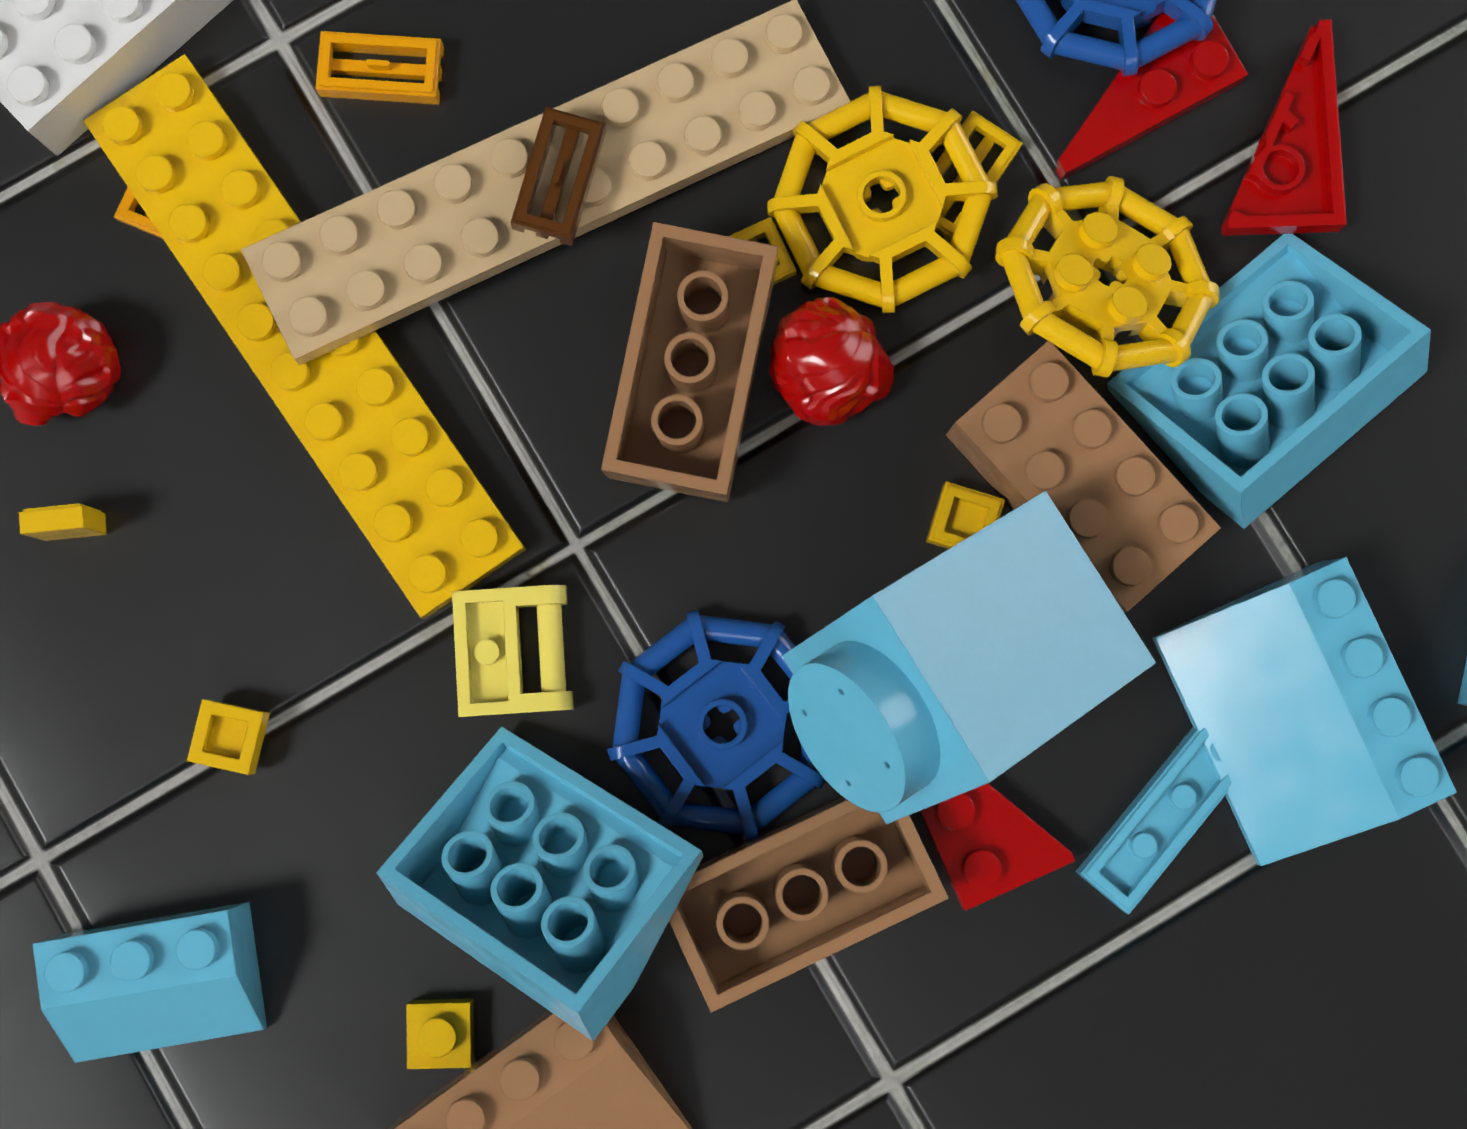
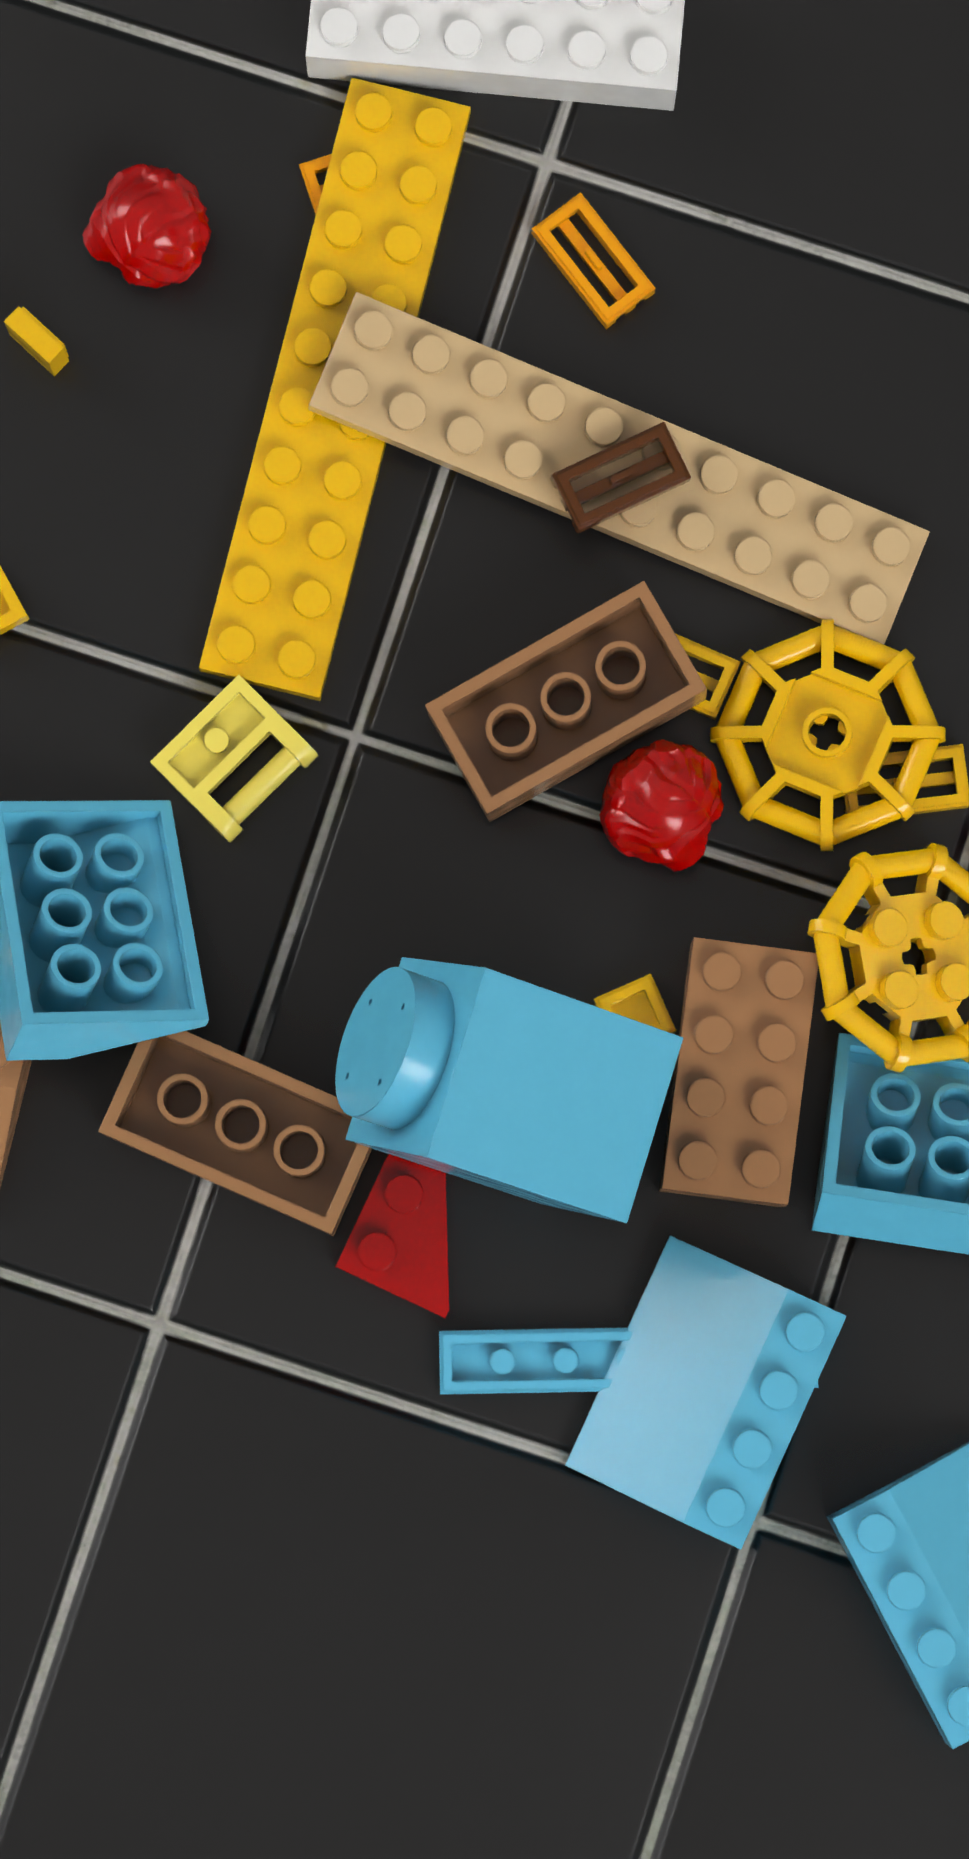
camera: 50 degrees right, 0 degrees up
(684, 723) = (295, 933): blue plate -> none

